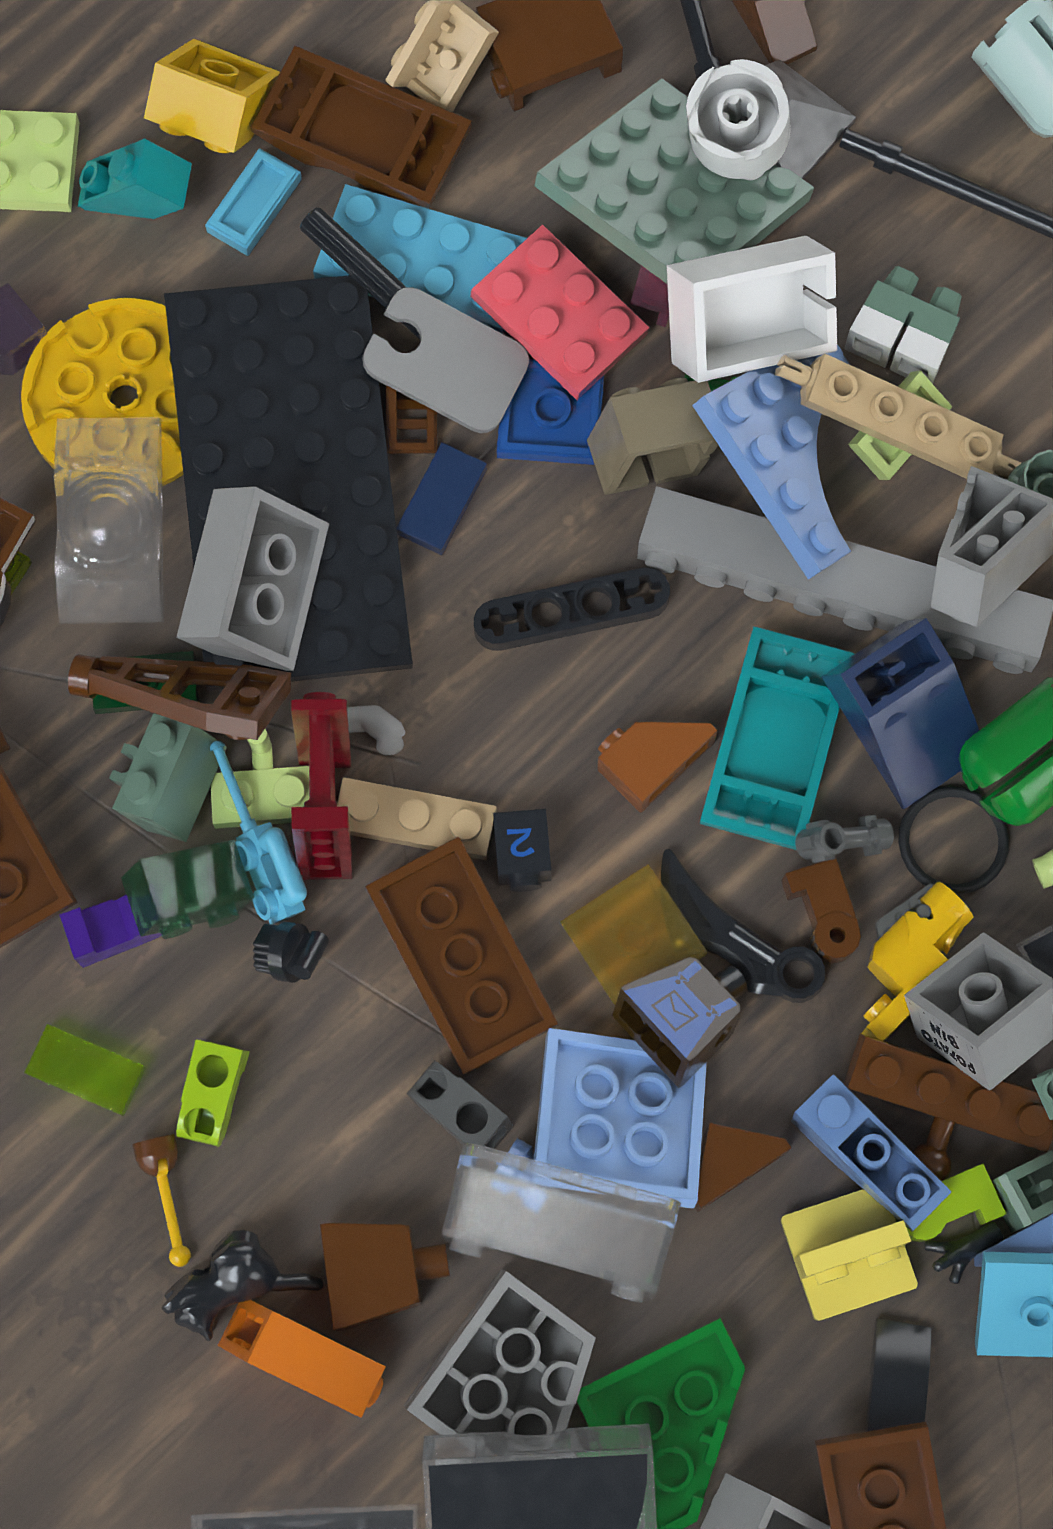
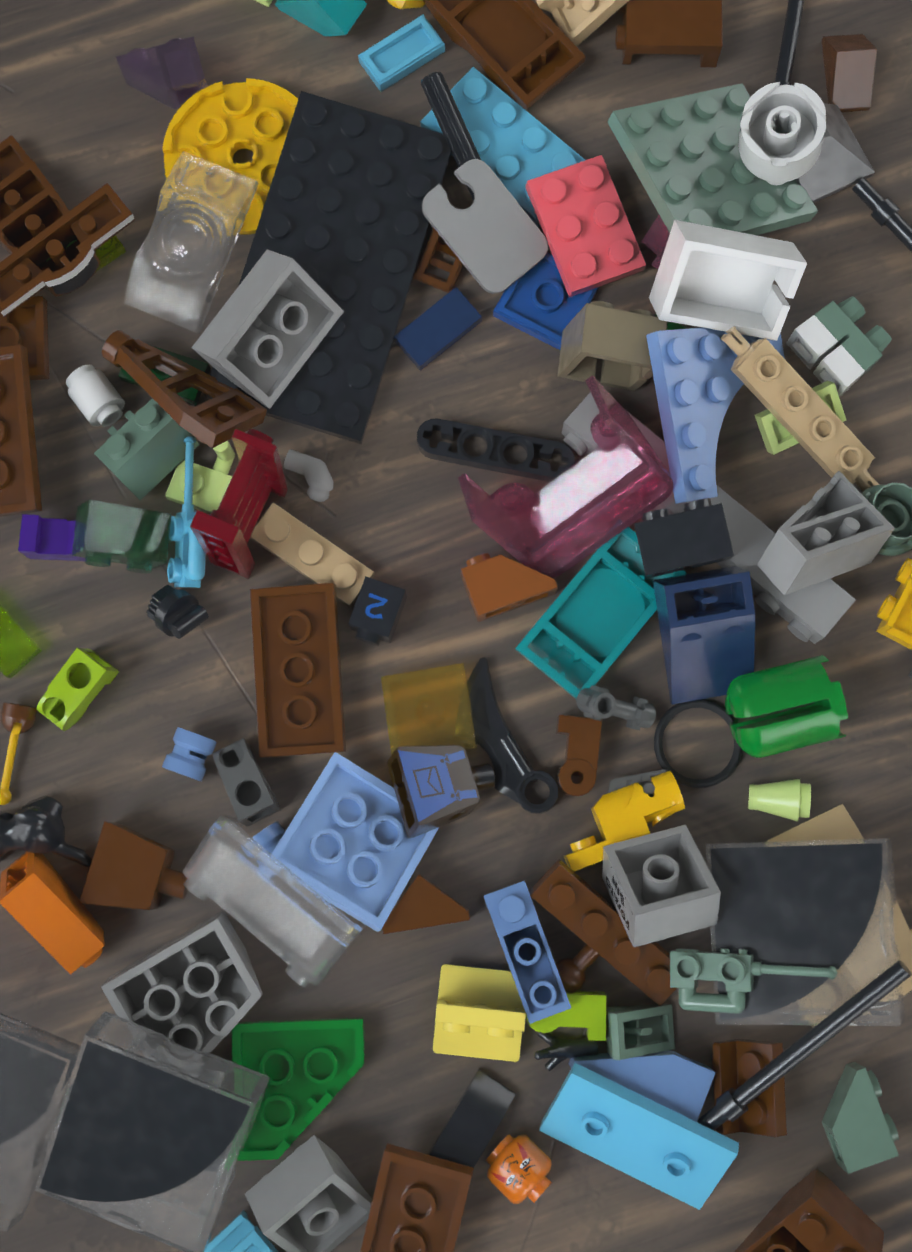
camera: 25 degrees right, 5 degrees up
(77, 744) = (95, 396): none -> white brick
(379, 1107) = (189, 754): none -> medium blue wheel
(703, 623) = (581, 505): none -> clear pink windscreen
(842, 610) = (683, 539): none -> black piece
(975, 1406) = (519, 1169): none -> orange head

